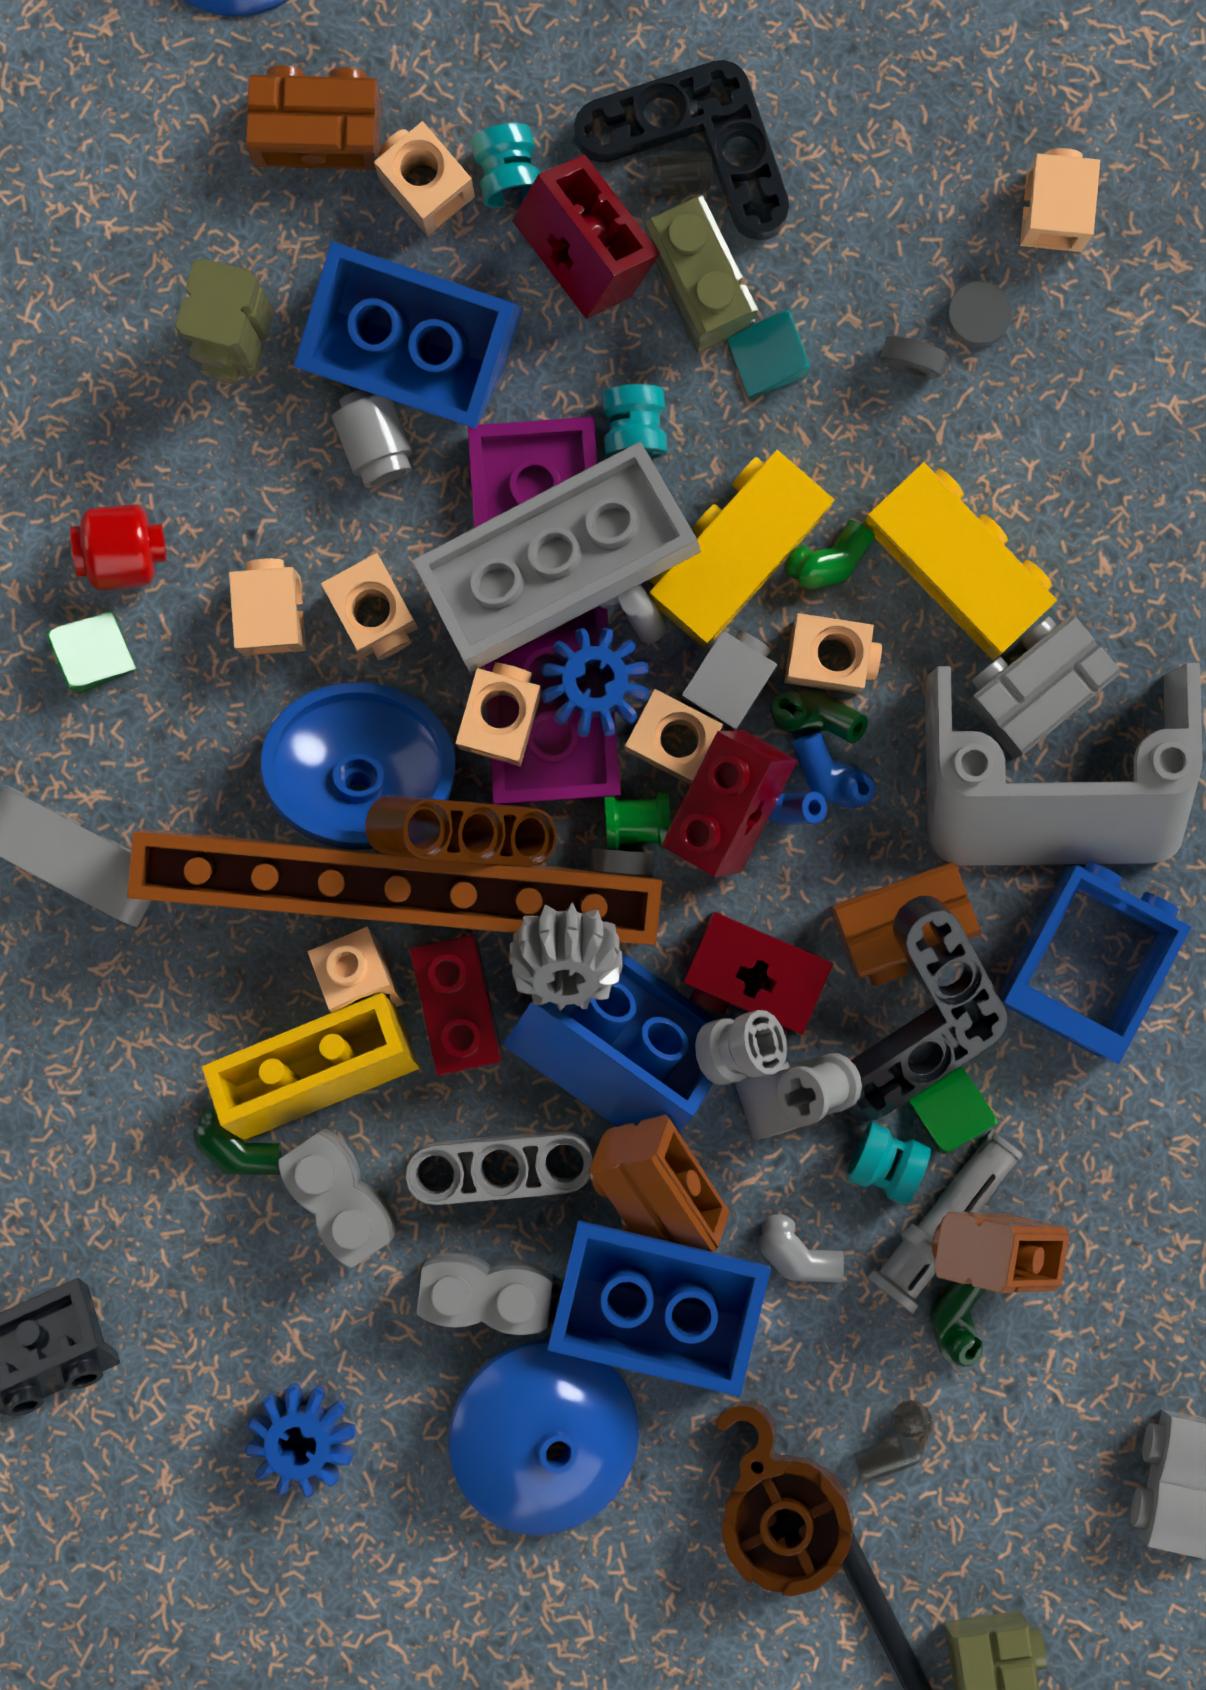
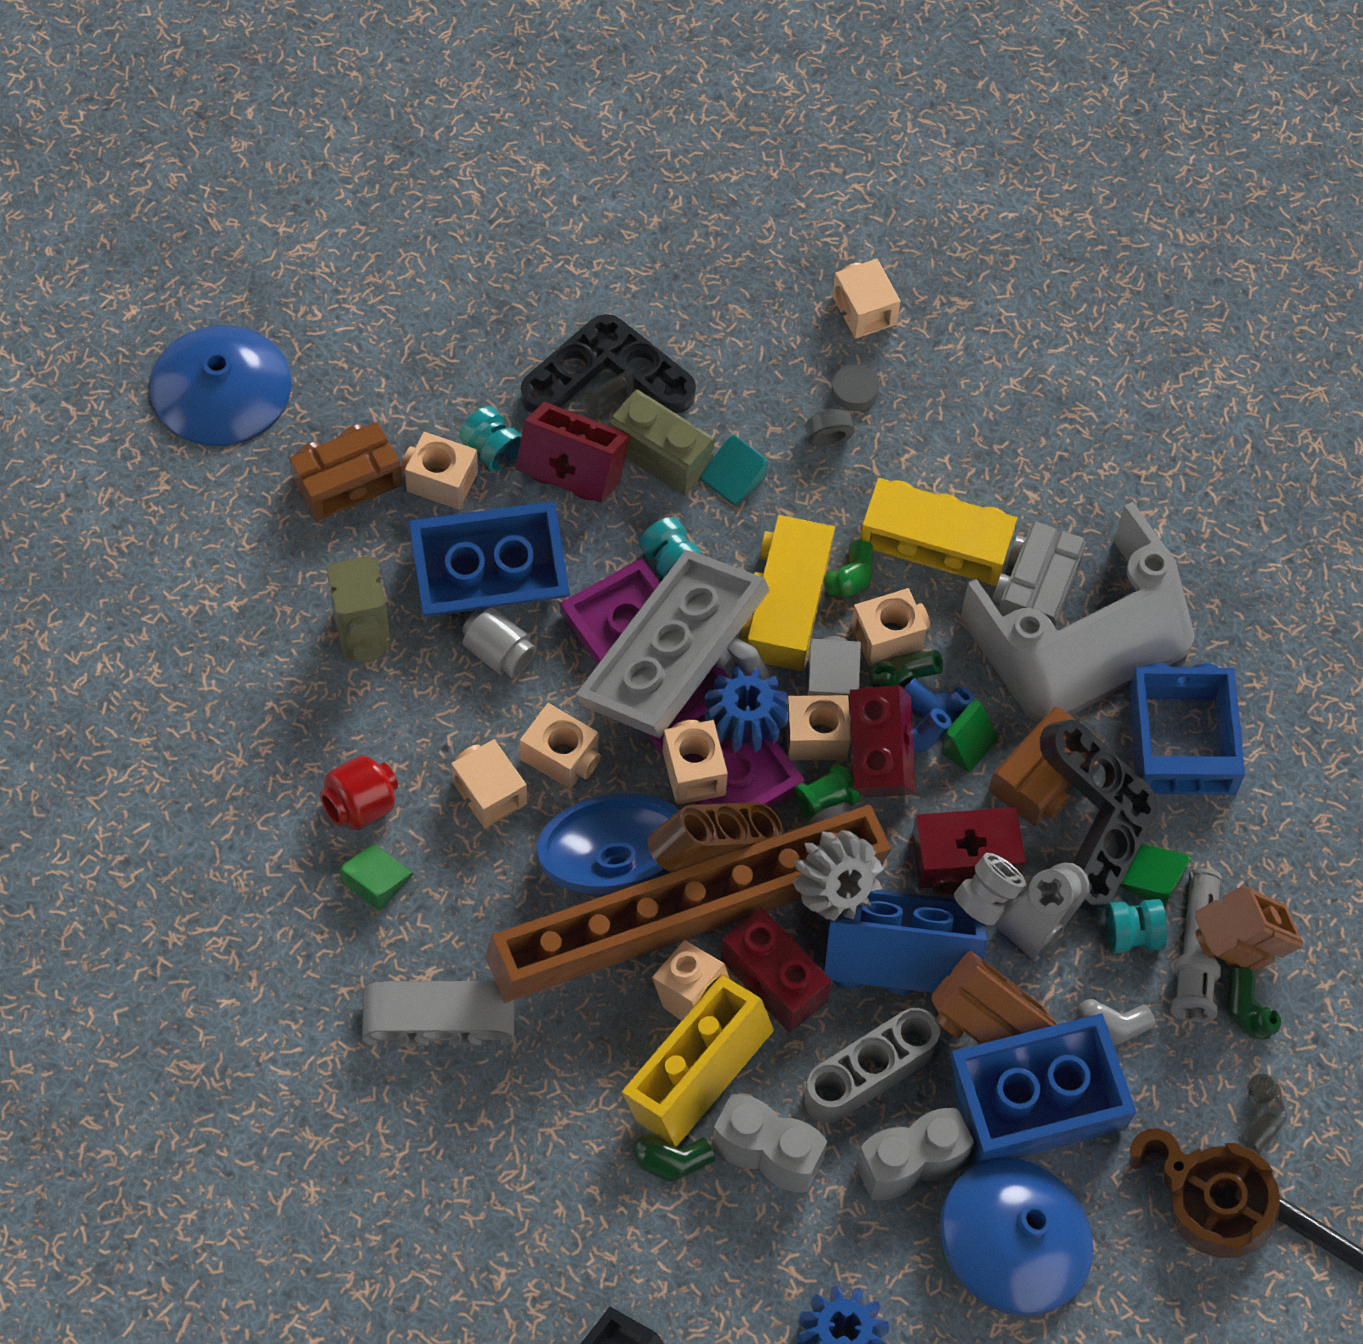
camera: 35 degrees left, 25 degrees down
(841, 839) = (969, 737): none -> green slope

